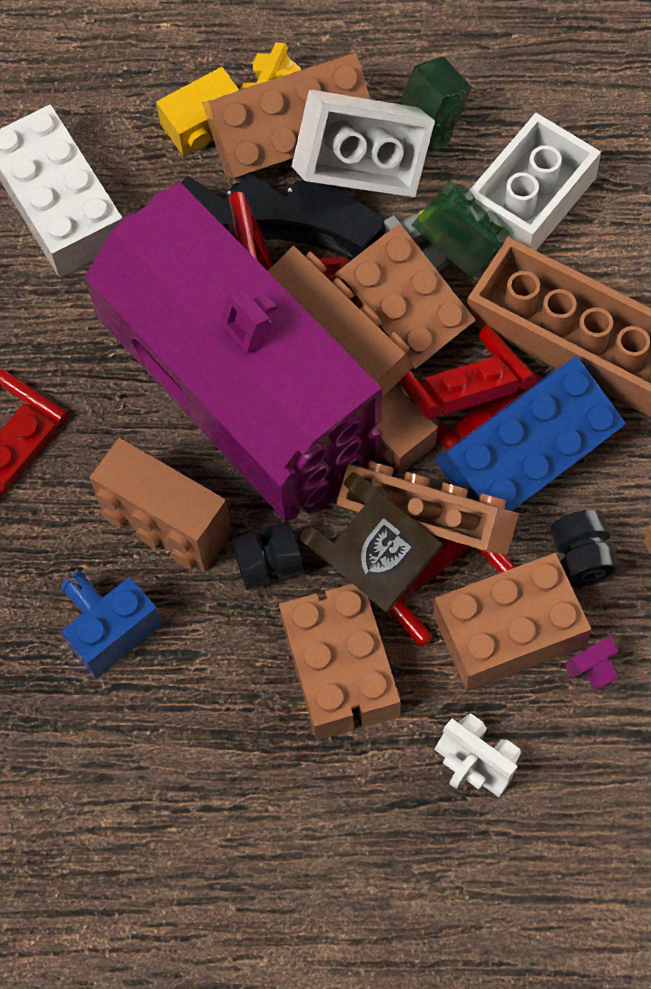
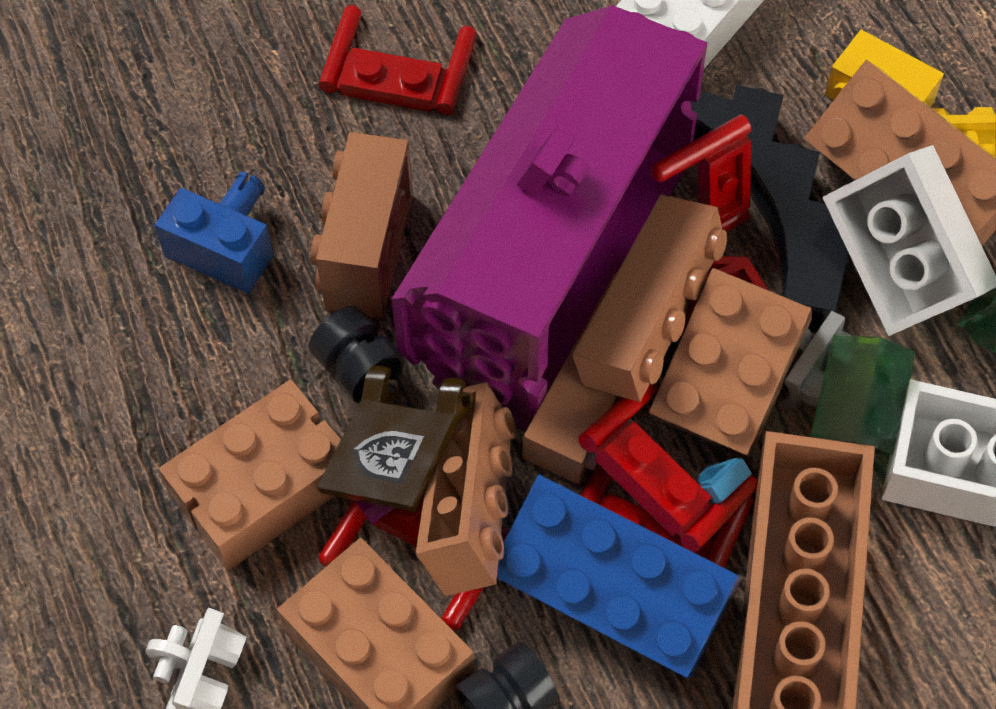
camera: 65 degrees right, 5 degrees down
(480, 346) = (723, 478): none -> dark azure tile

